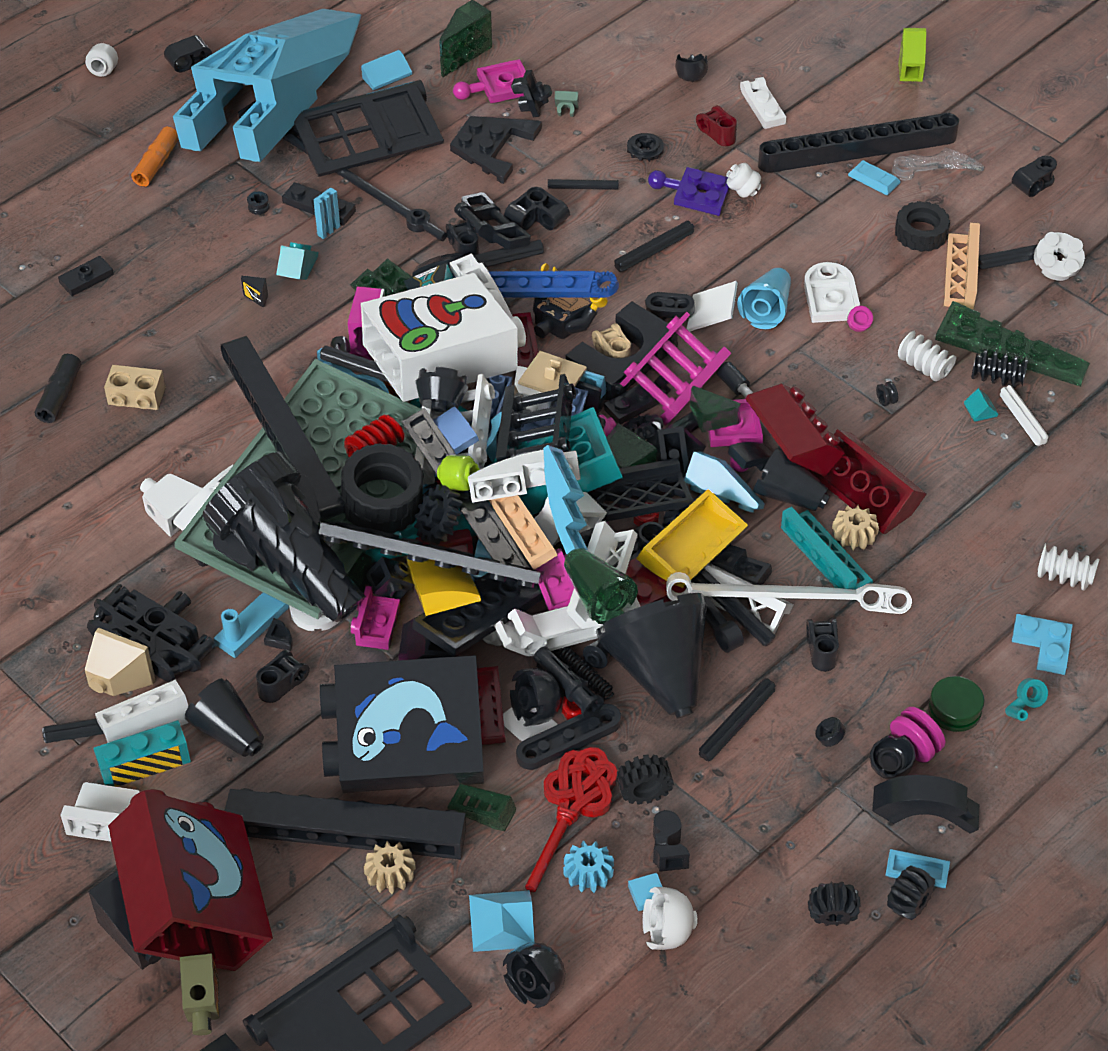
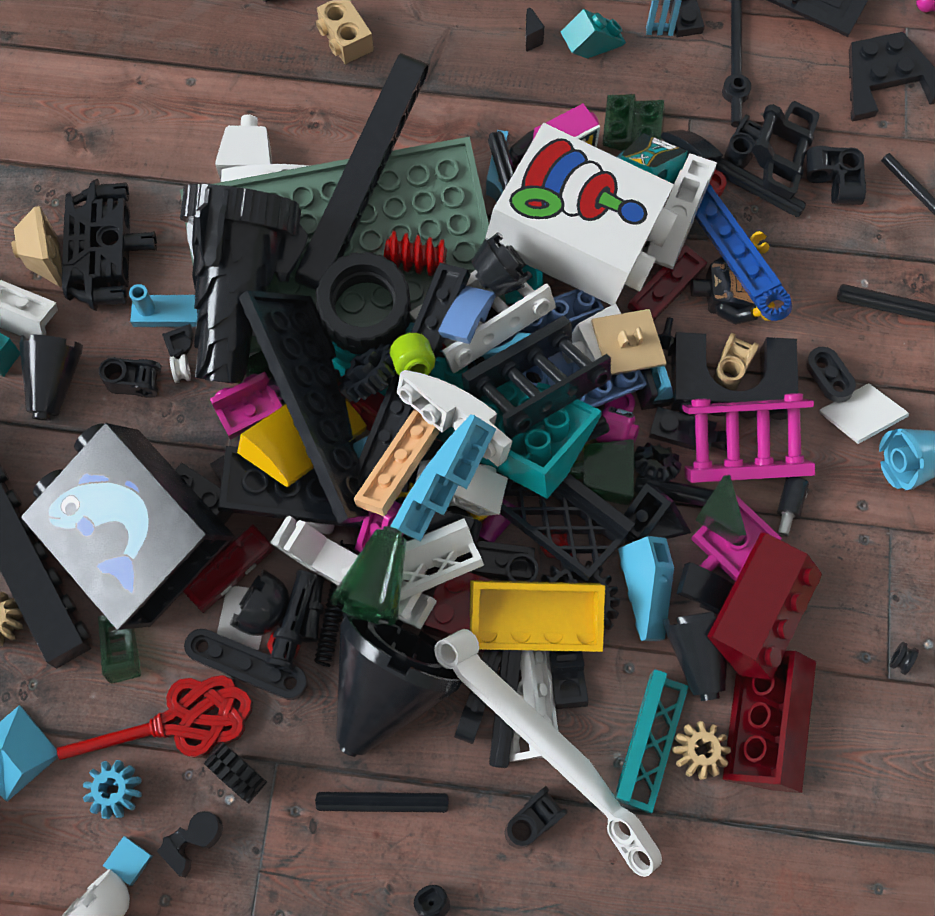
camera: 50 degrees right, 20 degrees up
(304, 643) = (180, 368): none -> white bush

